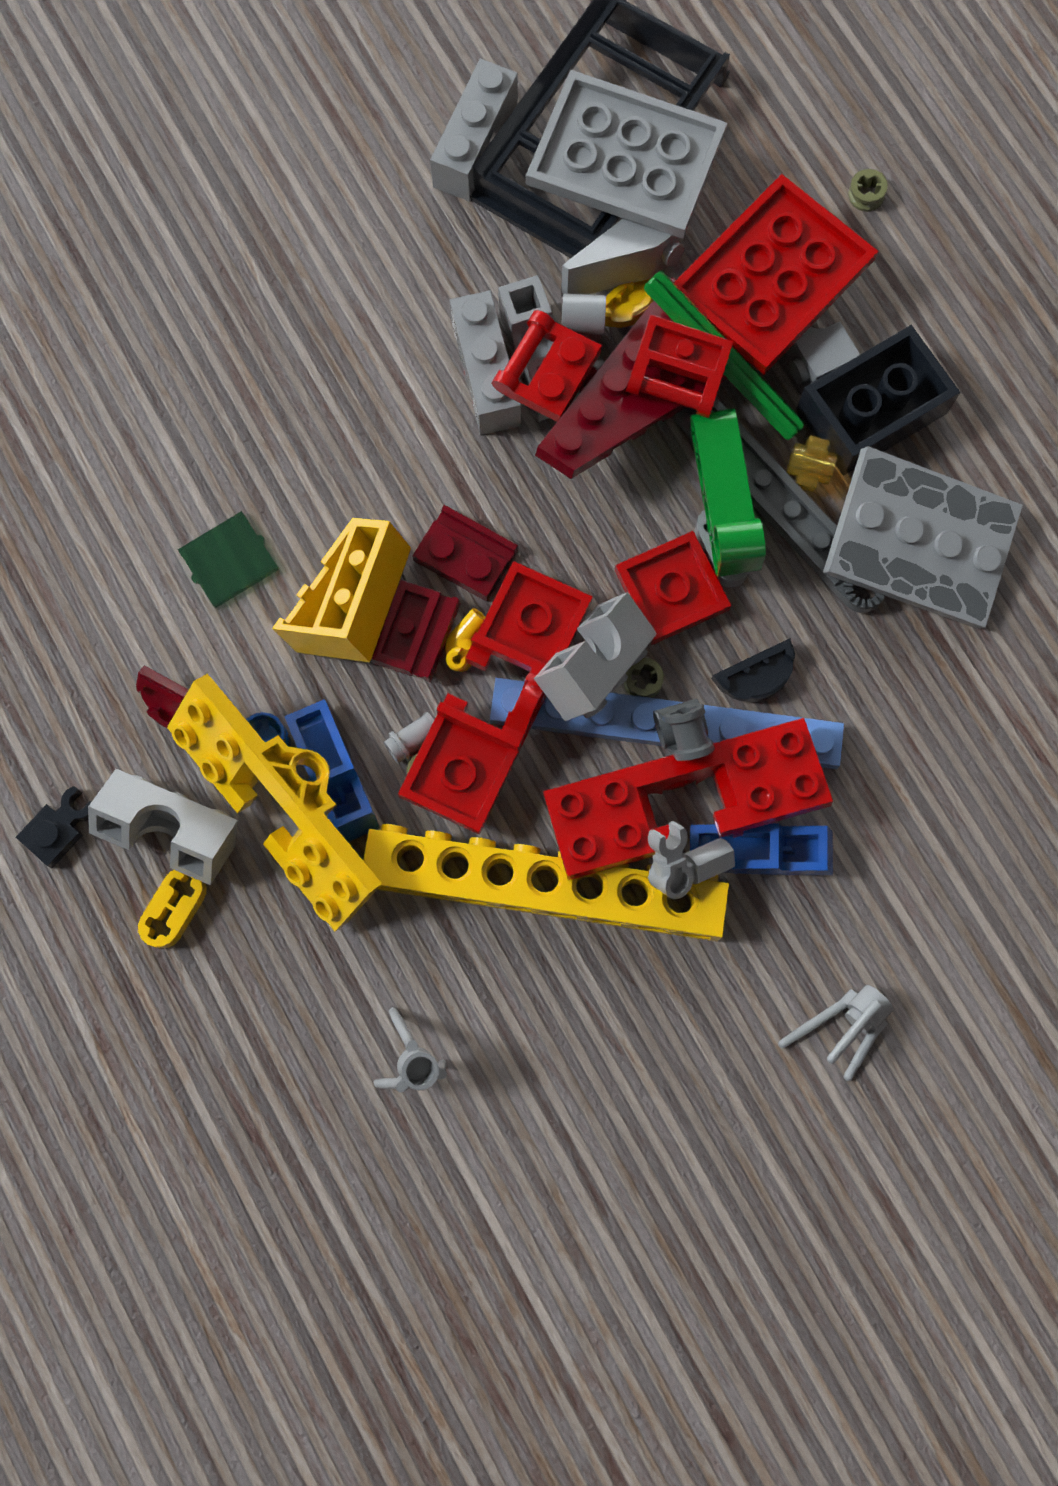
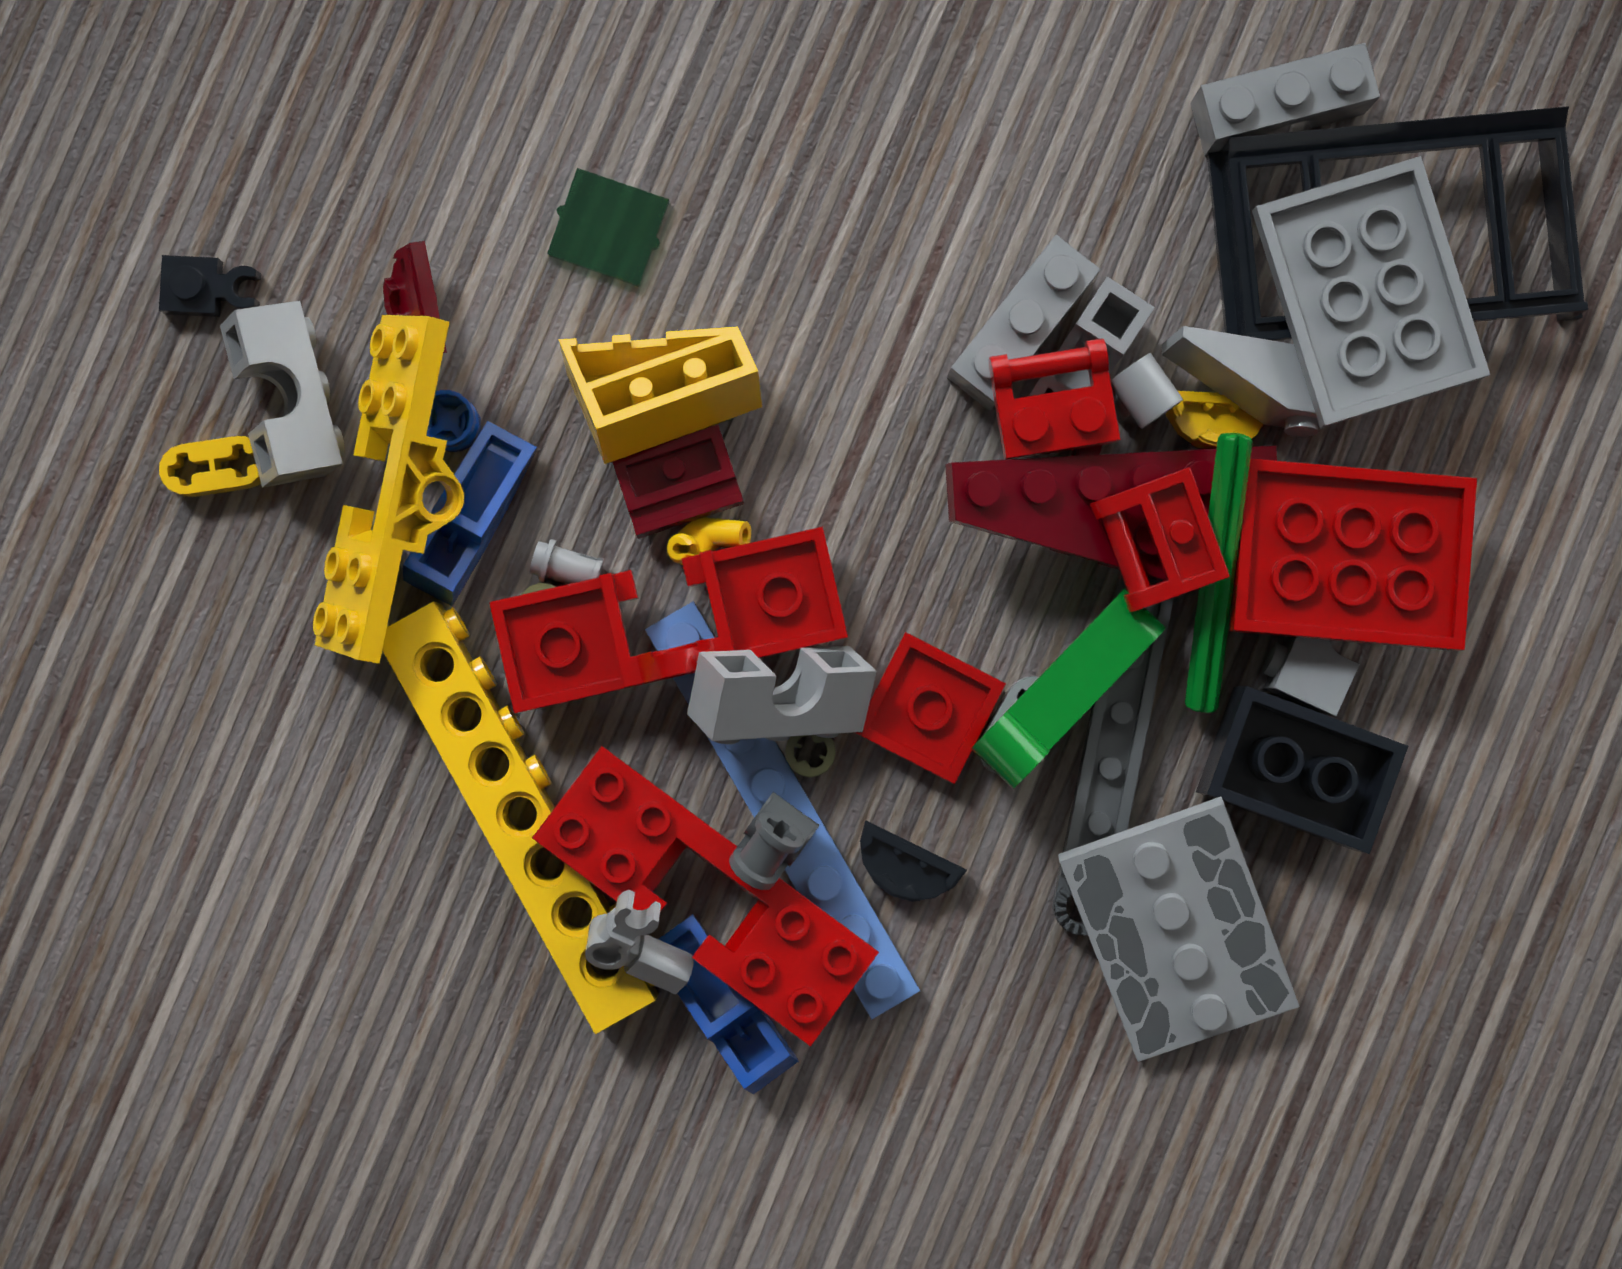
camera: 50 degrees right, 10 degrees up
(415, 1065) = (235, 834): light grey plant -> none
(465, 553) = (803, 464): dark red plate -> none
(811, 463) = (1177, 751): clear yellow gear -> none
(865, 179) = (1566, 564): olive bush -> none
(866, 1014) = (637, 1231): light grey plant -> none

